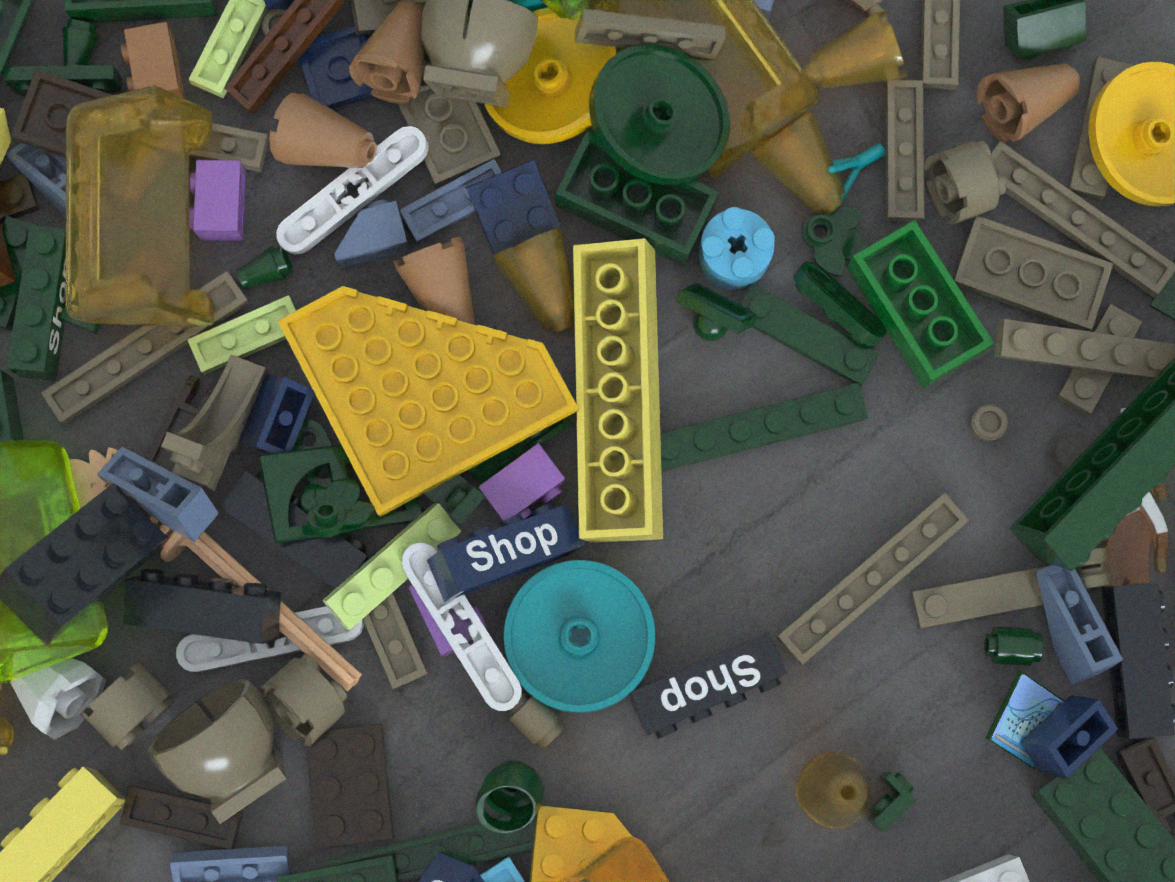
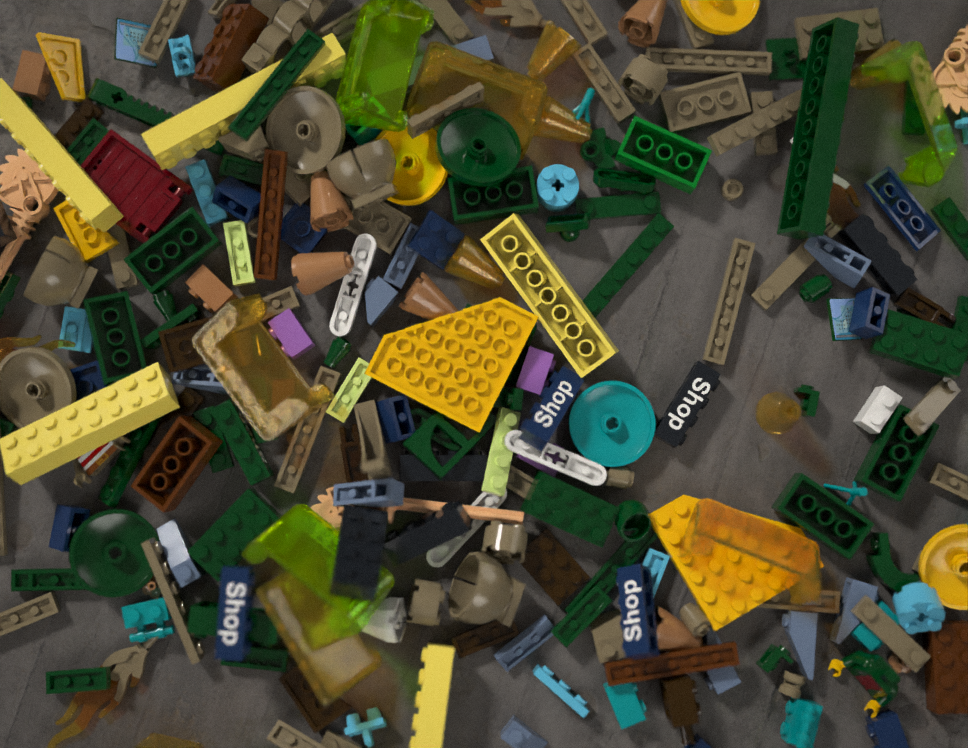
camera: 30 degrees left, 5 degrees up
(334, 506) = (456, 443): dark green plate -> none
(431, 717) = (570, 509): none -> dark green brick

